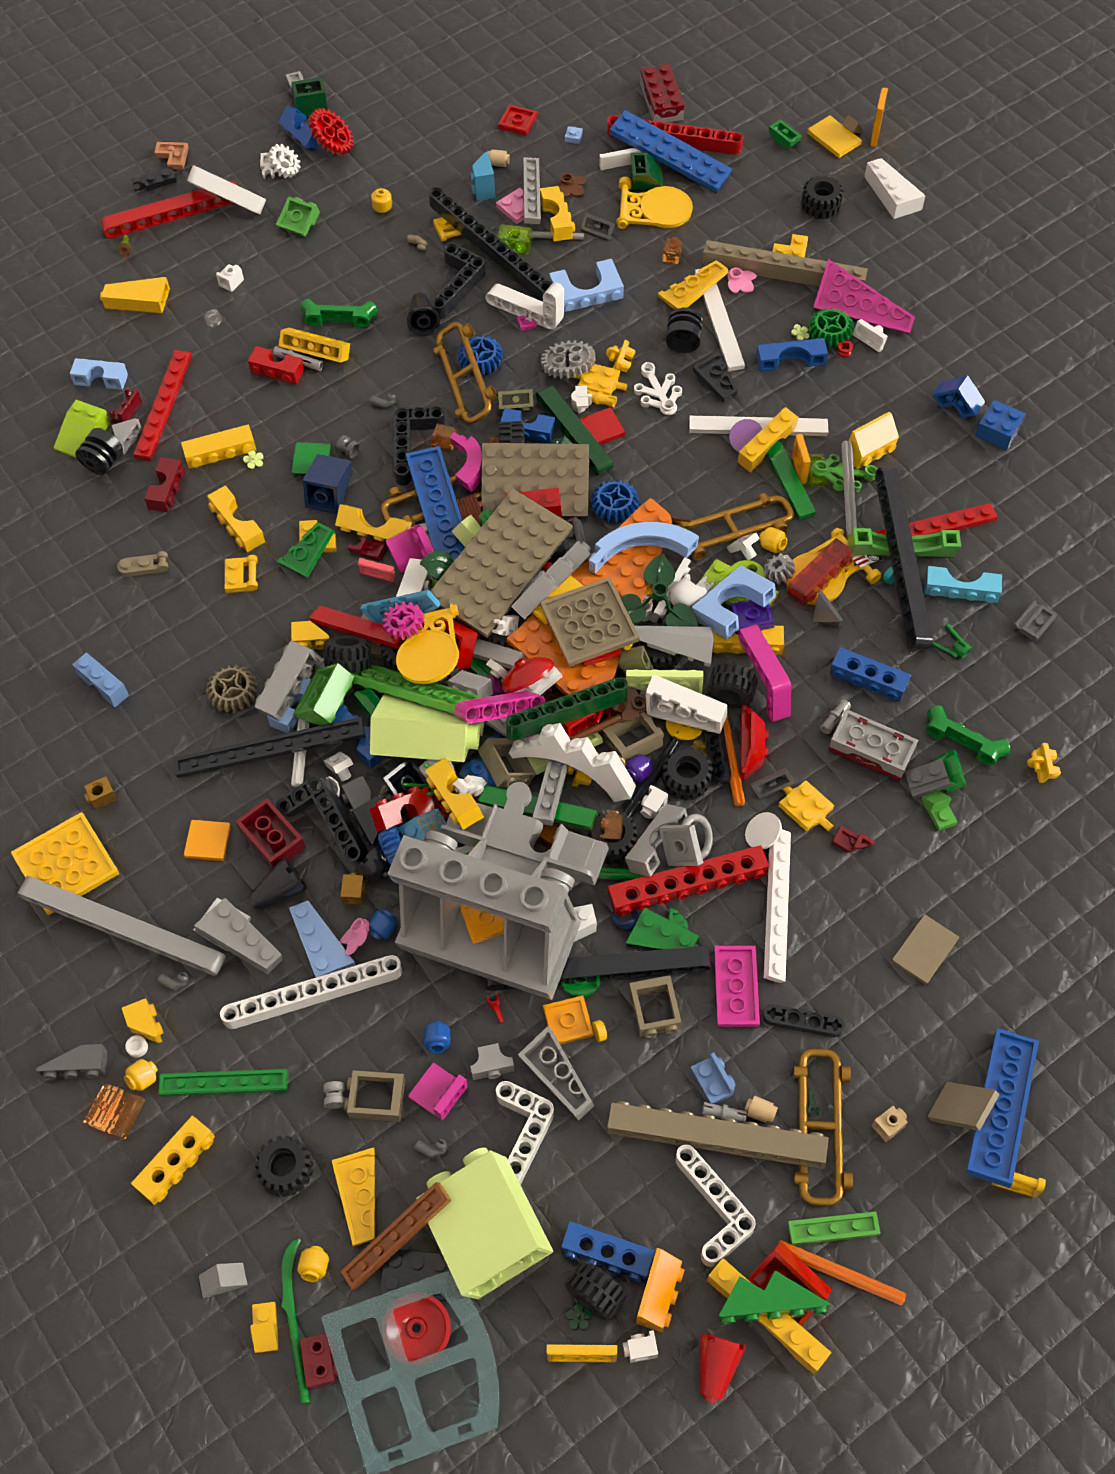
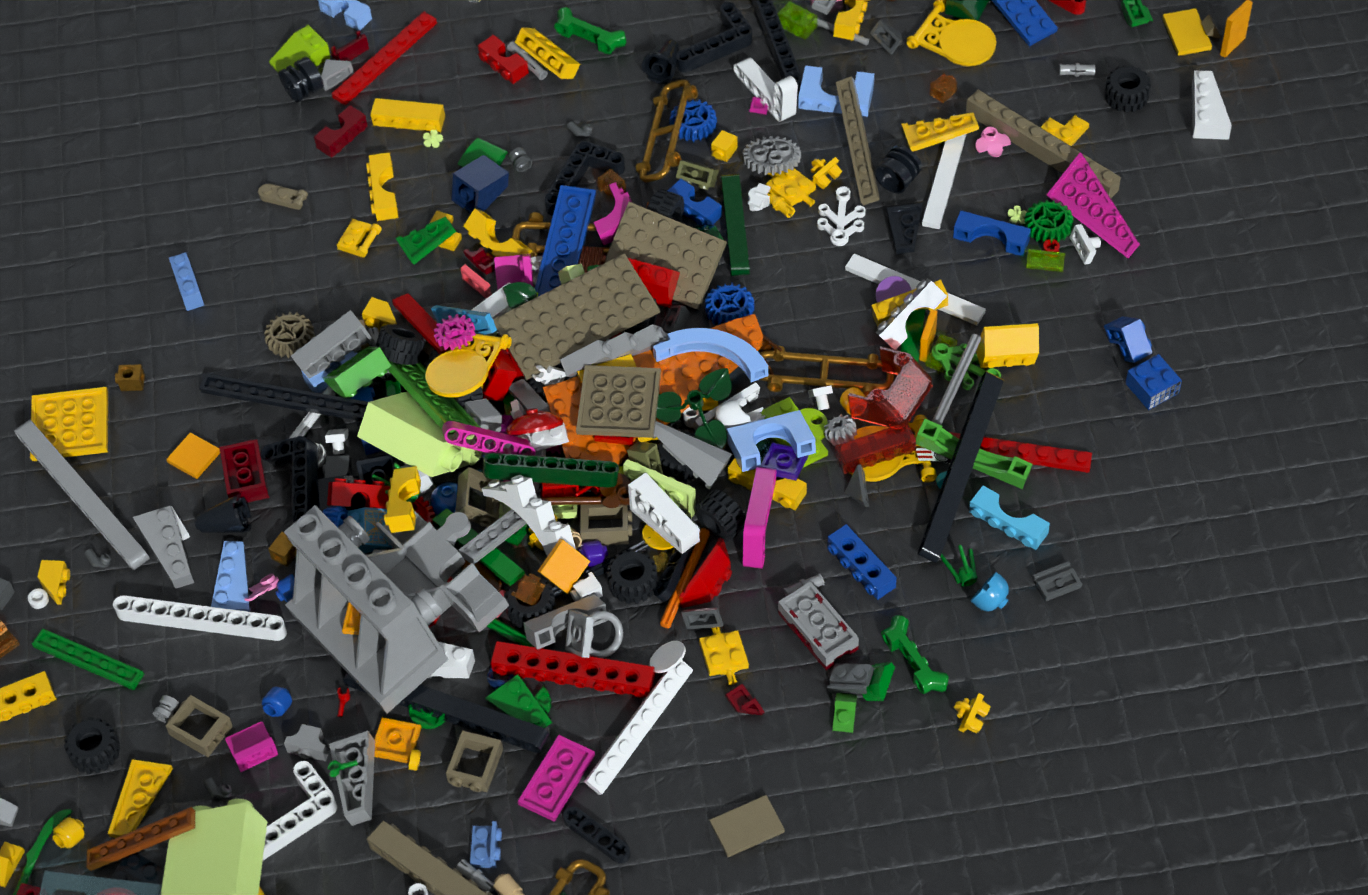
camera: 30 degrees right, 5 degrees down
(140, 1075) = (26, 621): yellow head -> none
(470, 784) = (427, 501): white hinge -> none
(521, 367) = (724, 146): none -> yellow brick
(543, 1072) = (336, 767): none -> green hand
(603, 426) = (765, 232): red tile -> none
(627, 790) = (563, 566): none -> light orange tile
(635, 319) = (857, 141): none -> dark tan plate
(769, 197) = (1077, 69): none -> light grey pin
(770, 463) = (925, 295): none -> arch
(815, 531) = (901, 400): none -> clear red windscreen
(848, 360) = (1045, 260): none -> clear neon green plate
(993, 653) = (992, 594): none -> dark azure cylinder

